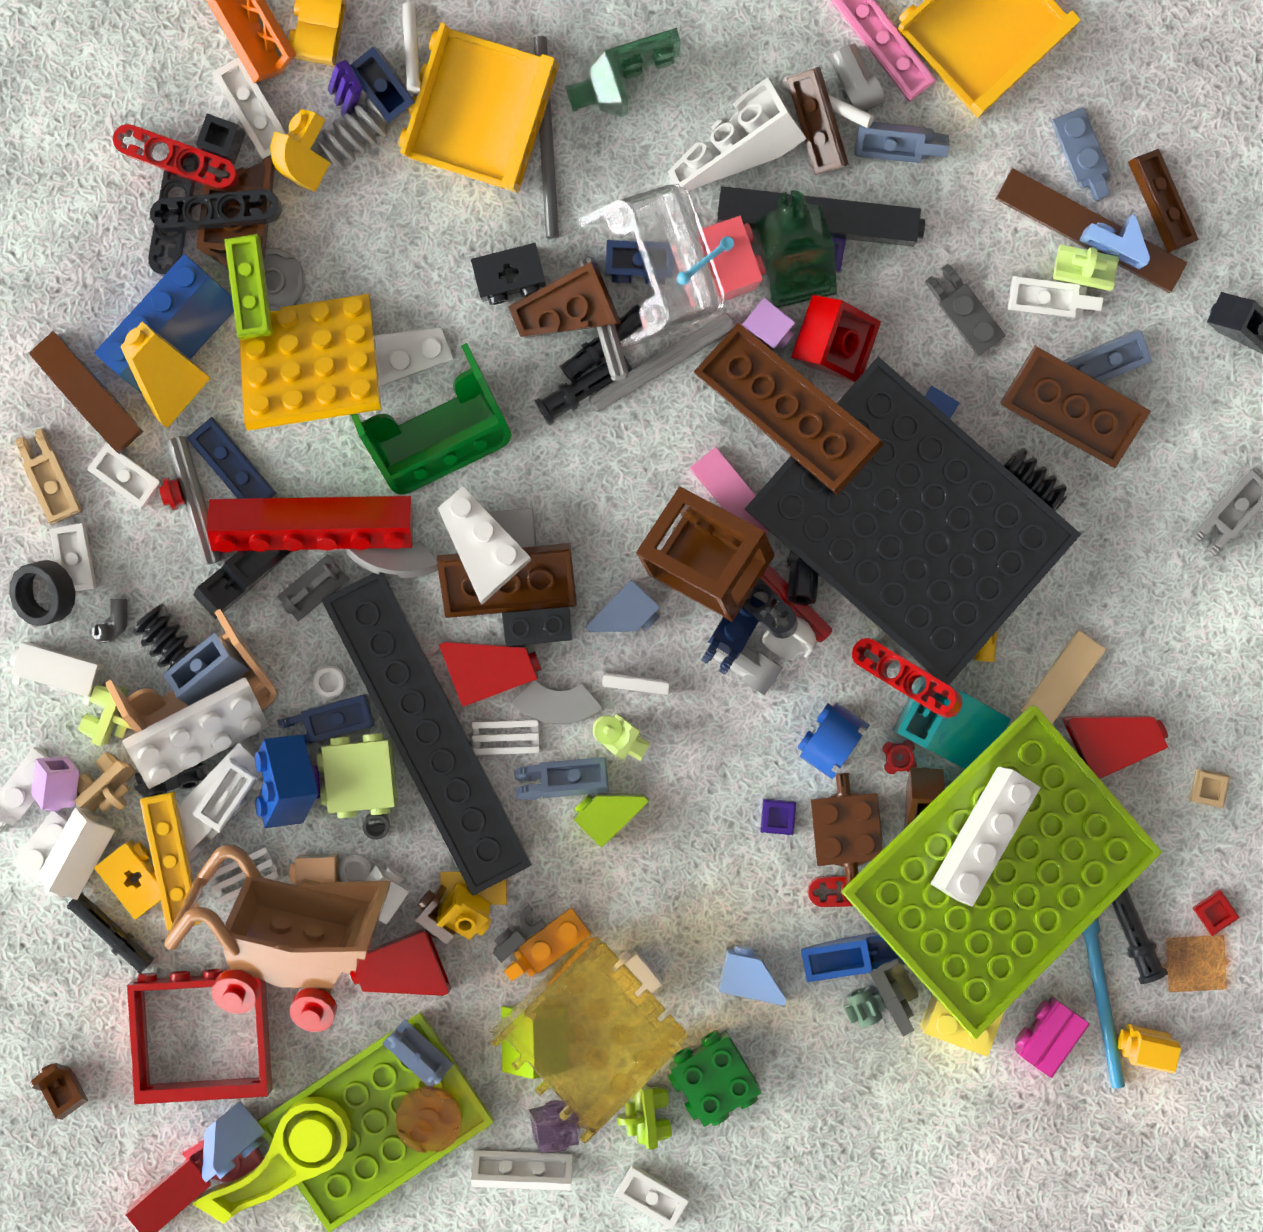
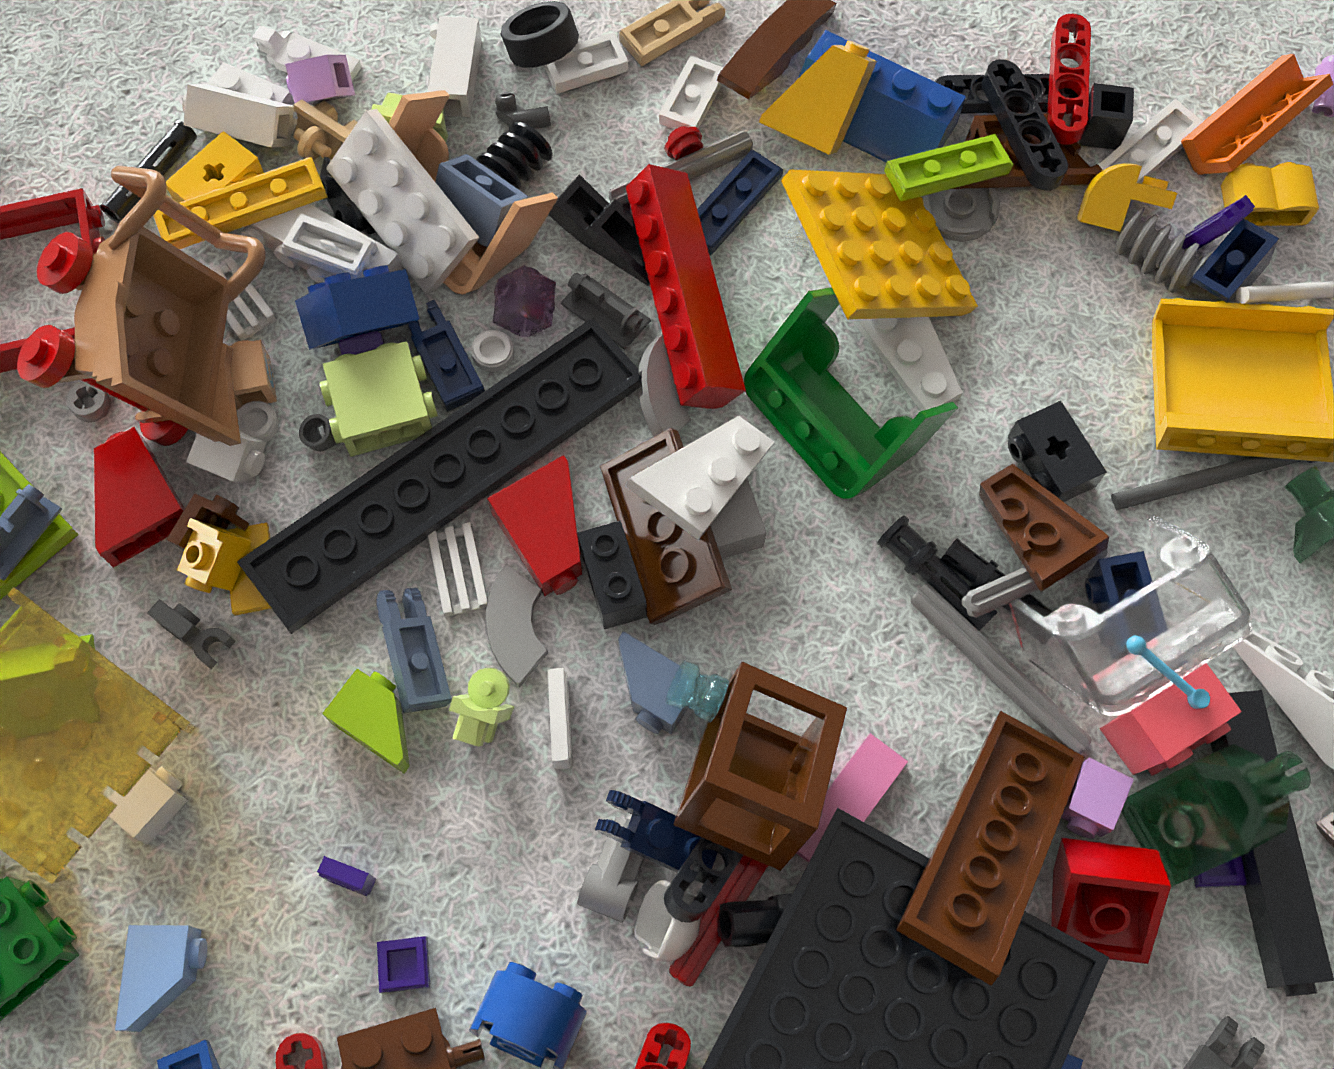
camera: 75 degrees right, 20 degrees down
(297, 650) = (524, 301): none -> clear purple brick
(548, 945) = (182, 678): light orange hinge -> none
(644, 585) = (698, 691): none -> clear light blue wheel
(714, 846) = (346, 876): none -> dark purple tile

